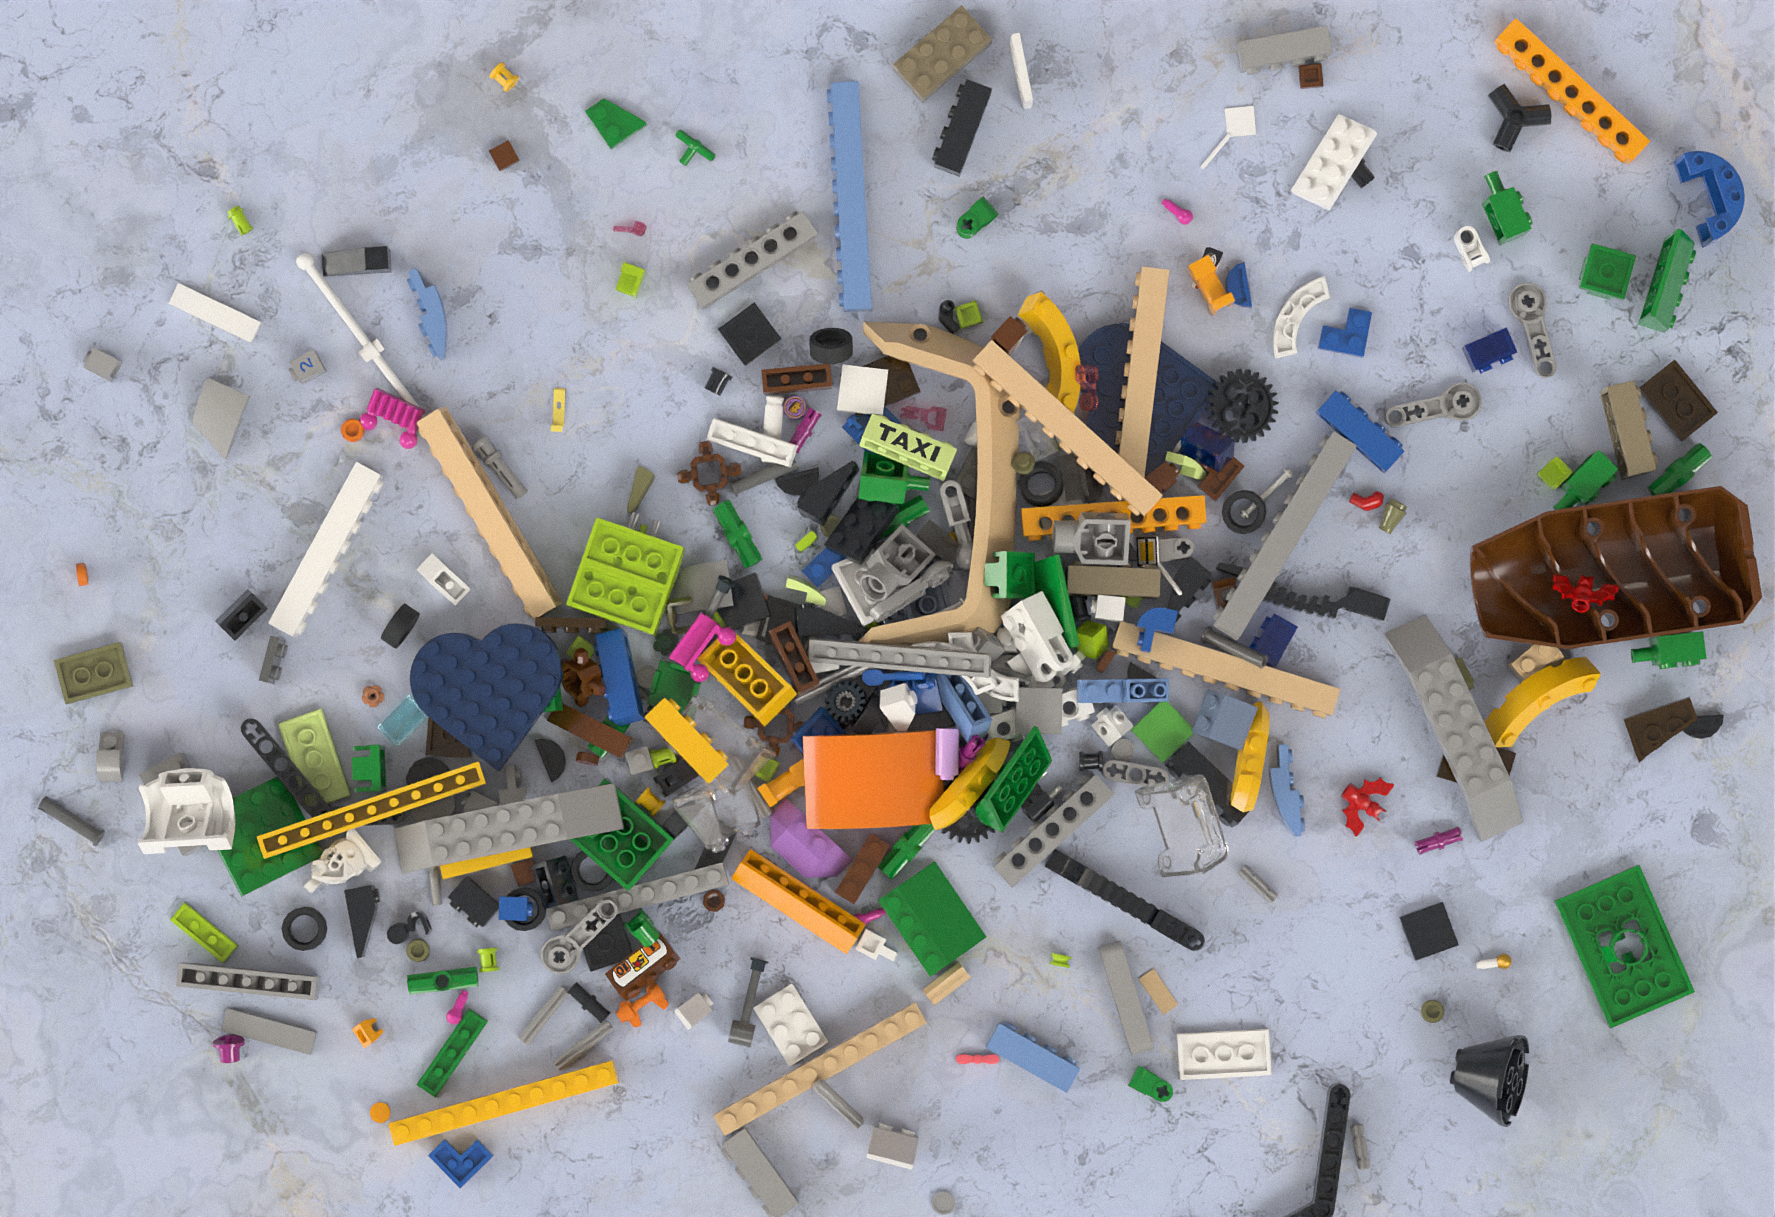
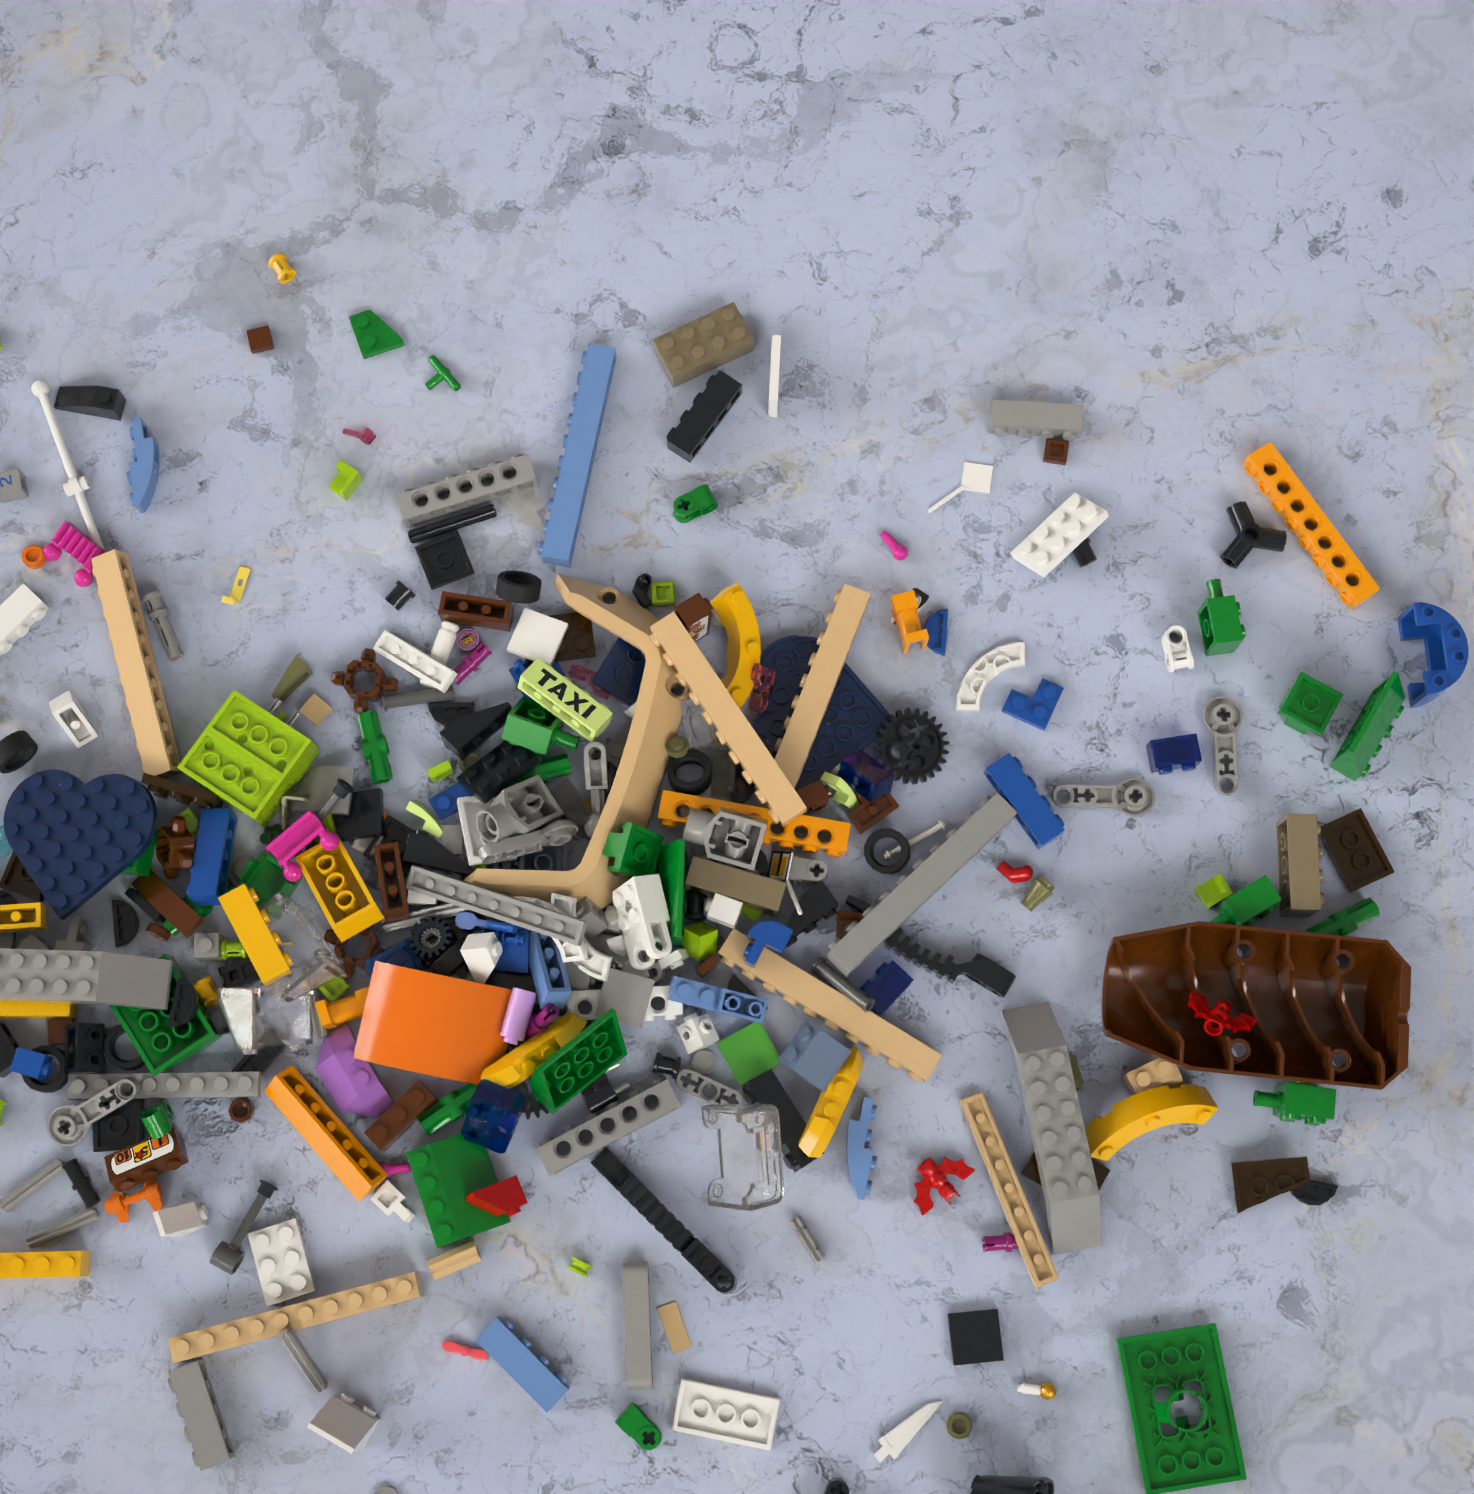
camera: 15 degrees right, 10 degrees down
(568, 737) = (141, 902): none -> black tile
(638, 819) = (184, 1004): none -> black tile
(669, 511) = (315, 709): none -> tan tile
(746, 296) = (452, 523): none -> black axle
(945, 842) = (492, 1107): none -> clear blue axle
(951, 403) = (621, 672): none -> dark blue tile
(974, 918) = (500, 1198): none -> red slope
(1383, 1032) = (900, 1436): none -> white bar
(1428, 793) = (1009, 1190): none -> tan tile

